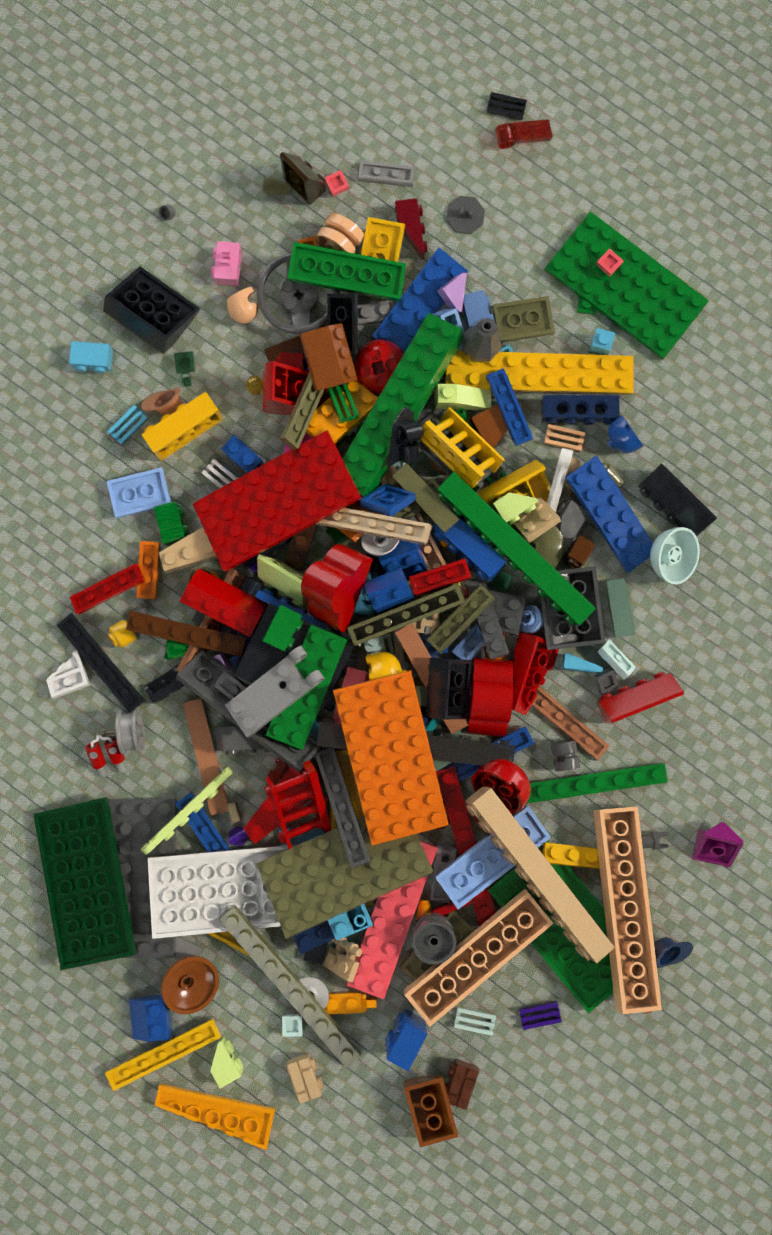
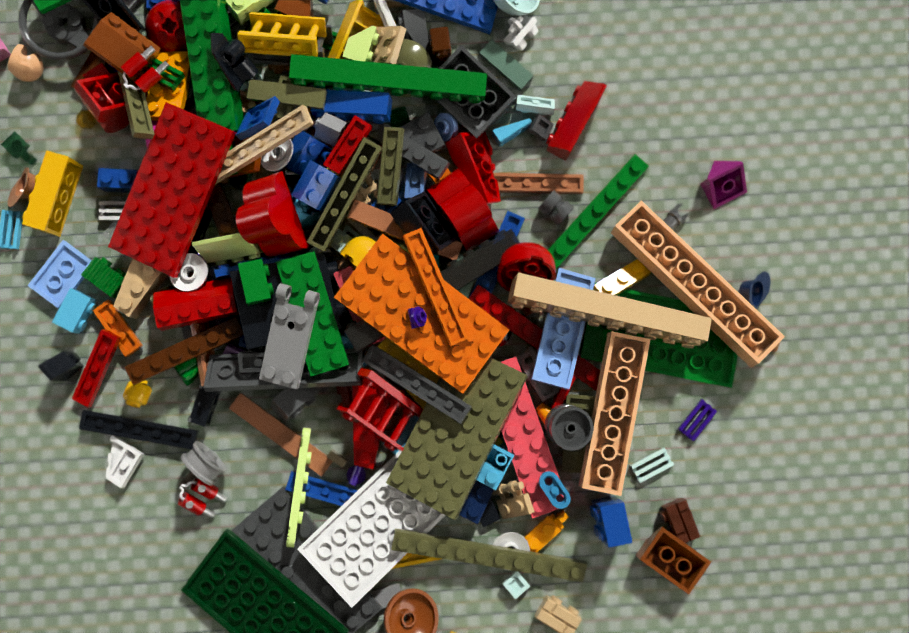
camera: 40 degrees left, 0 degrees up
(82, 566) = (61, 366): none -> black slope
(126, 530) = (75, 311): none -> medium azure brick
(246, 582) = (191, 263): none -> white dish
(329, 380) = (150, 77): none -> red piece
(381, 978) = (554, 489): none -> dark azure plate
(384, 758) = (417, 317): none -> dark purple plate
(417, 746) = (435, 287): none -> orange tile
(436, 552) = (329, 129): none -> light grey brick
(652, 589) = (519, 29): none -> white hips

